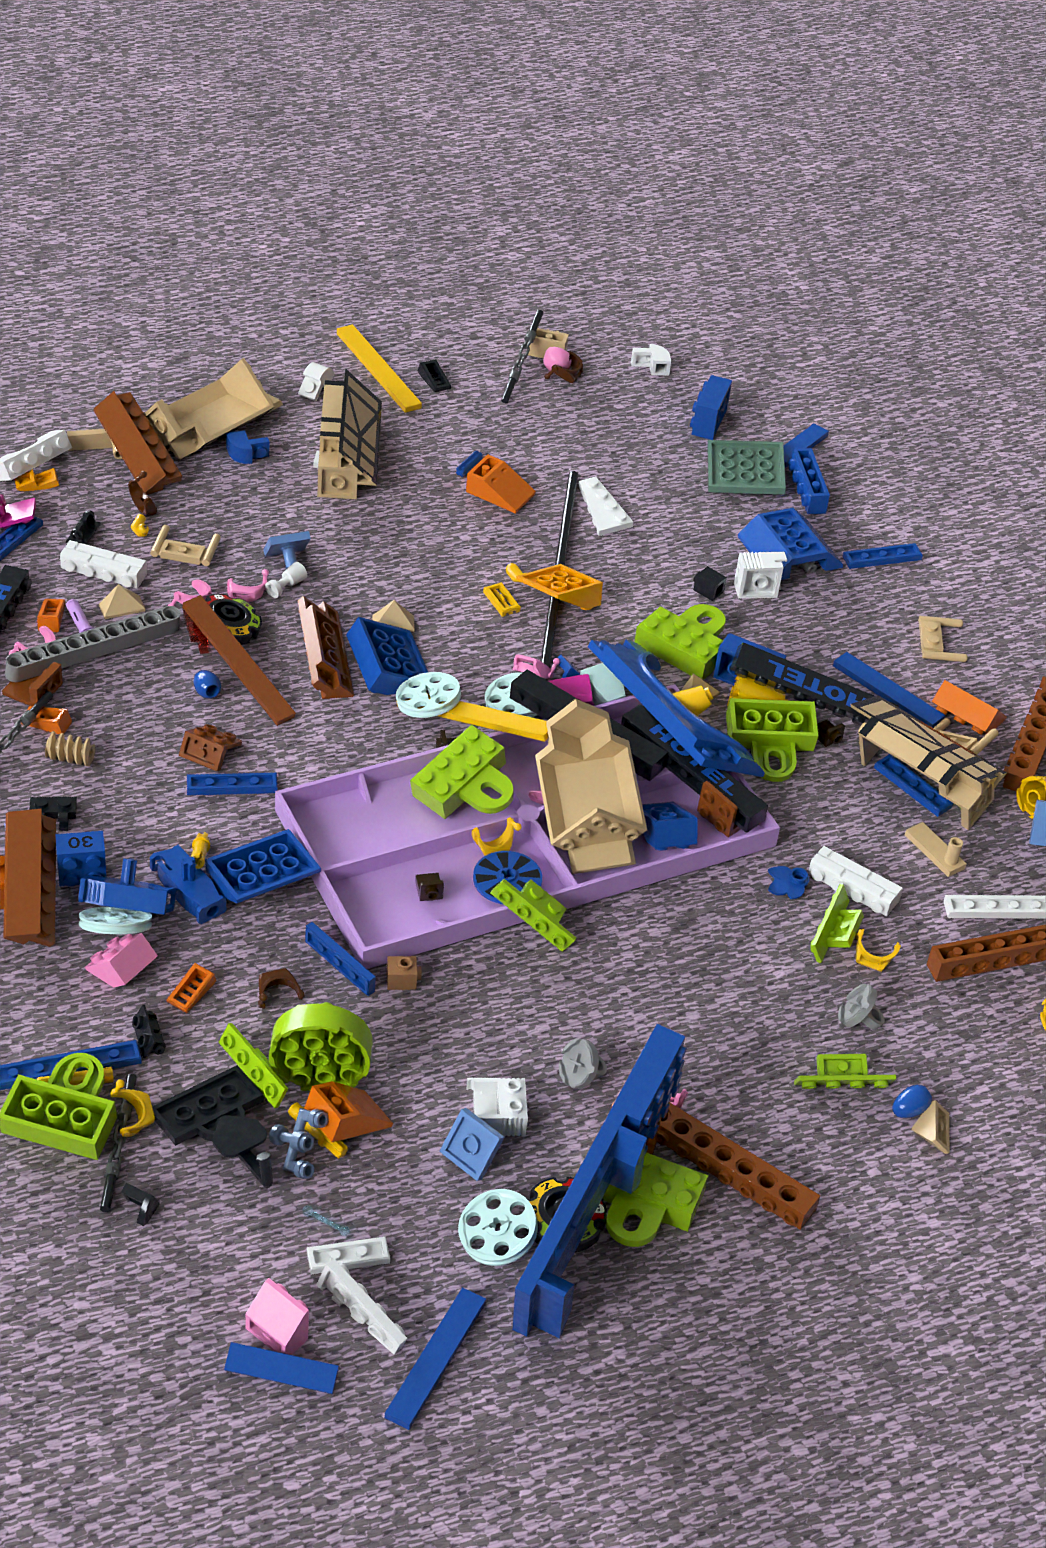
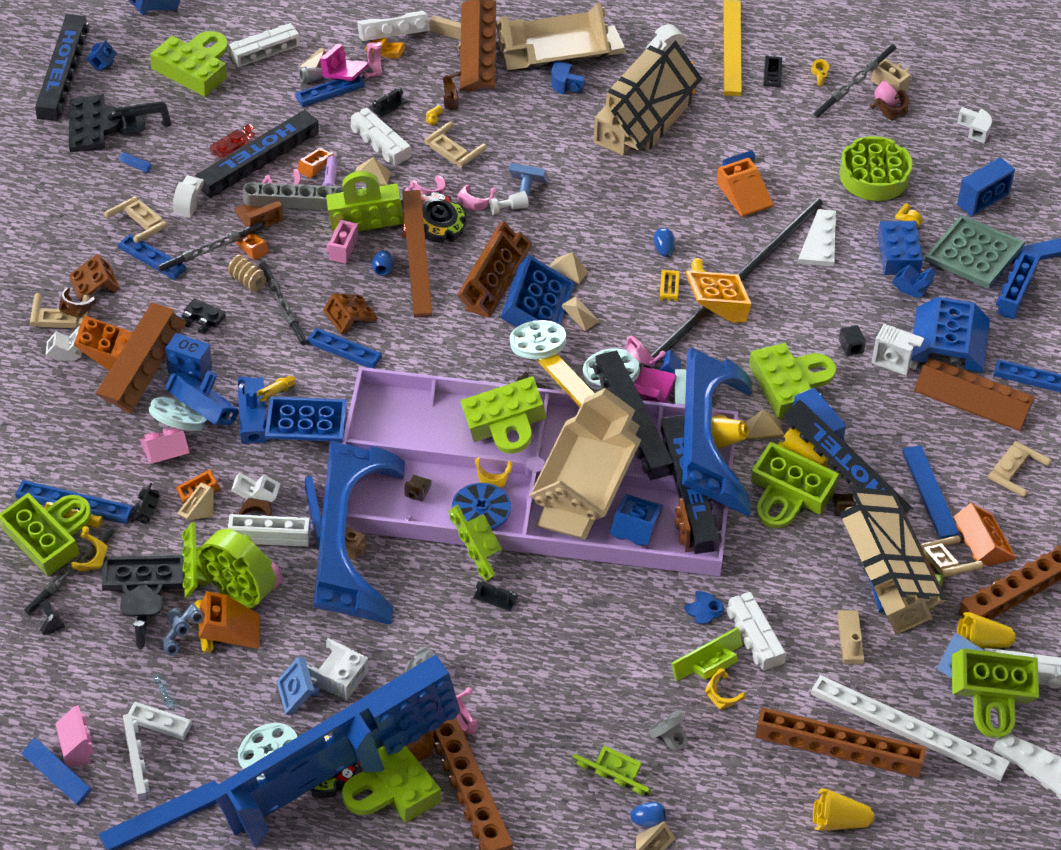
camera: 35 degrees right, 5 degrees up
(32, 490) = (375, 64): none -> bright pink helmet
(150, 678) = (343, 241): none -> bright pink brick
(151, 633) = (368, 207): none -> lime brick
(152, 777) = (291, 319): none -> piece
(208, 1004) = (198, 504): none -> tan slope
(268, 958) = (263, 489): none -> white brick
(331, 987) = (272, 529): none -> white brick
(431, 1014) = (337, 581): none -> blue piece
(440, 657) = (580, 313): none -> tan slope
(466, 560) = (664, 242): none -> blue animal
(476, 359) = (821, 75): none -> yellow plate
(583, 960) = (495, 596): none -> black hinge
(602, 426) = (875, 168): none -> lime brick
(669, 458) = (912, 215): none -> yellow plate
(681, 487) = (899, 246): none -> blue brick
(719, 513) = (912, 282): none -> blue brick
(851, 589) = (974, 394): none -> dark orange slope

